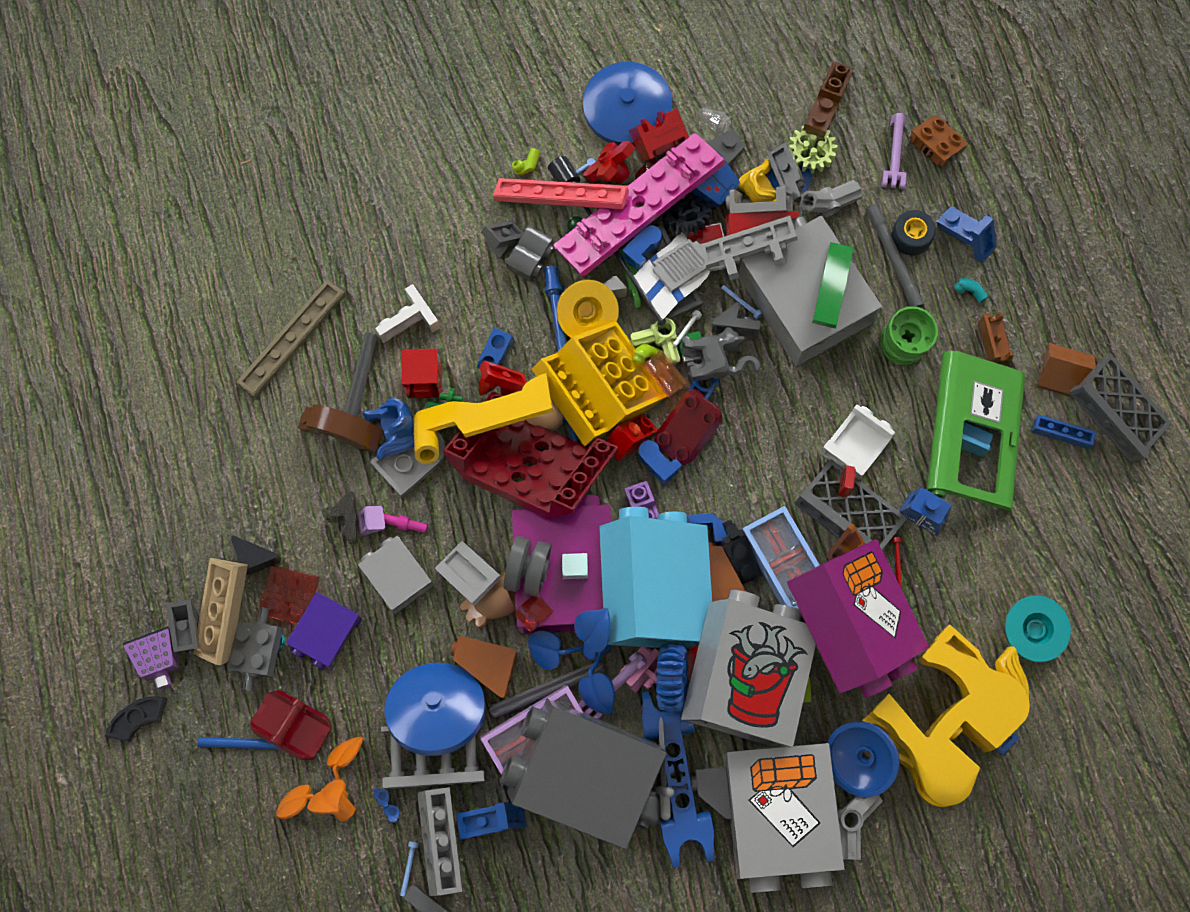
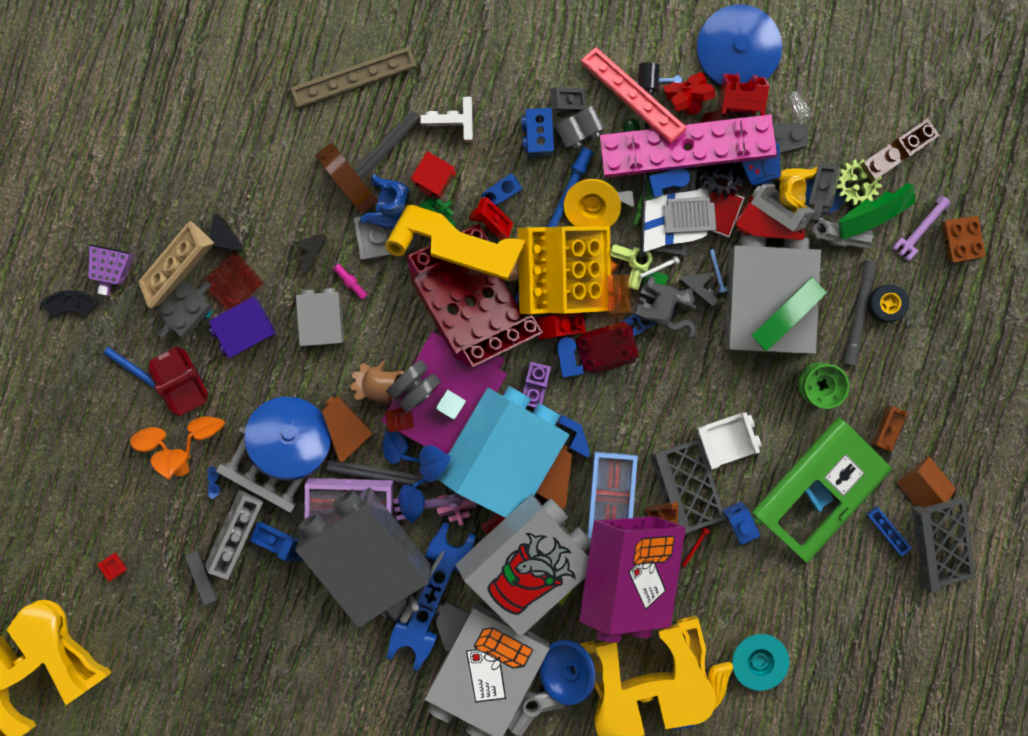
camera: 35 degrees right, 15 degrees up
(183, 625) = (141, 259): dark grey slope -> none
(371, 520) = (327, 264): lavender slope -> none
(412, 845) = (214, 522): light blue piece -> none
(468, 573) = (372, 354): light grey piece -> none
(496, 277) = (539, 132): none -> blue piece
(526, 166) = (626, 50): lime arm -> none
(644, 351) = (613, 266): lime arm -> none
(672, 677) = (469, 530): blue gear -> none
(739, 553) = (581, 468): black hinge -> none
(765, 237) = (764, 242): light grey hinge -> none
(846, 161) = (871, 214): none -> green slope
(847, 481) = (698, 465): red tile -> none
(972, 232) = (931, 330): blue bracket -> none
(972, 286) = (903, 376): teal arm -> none

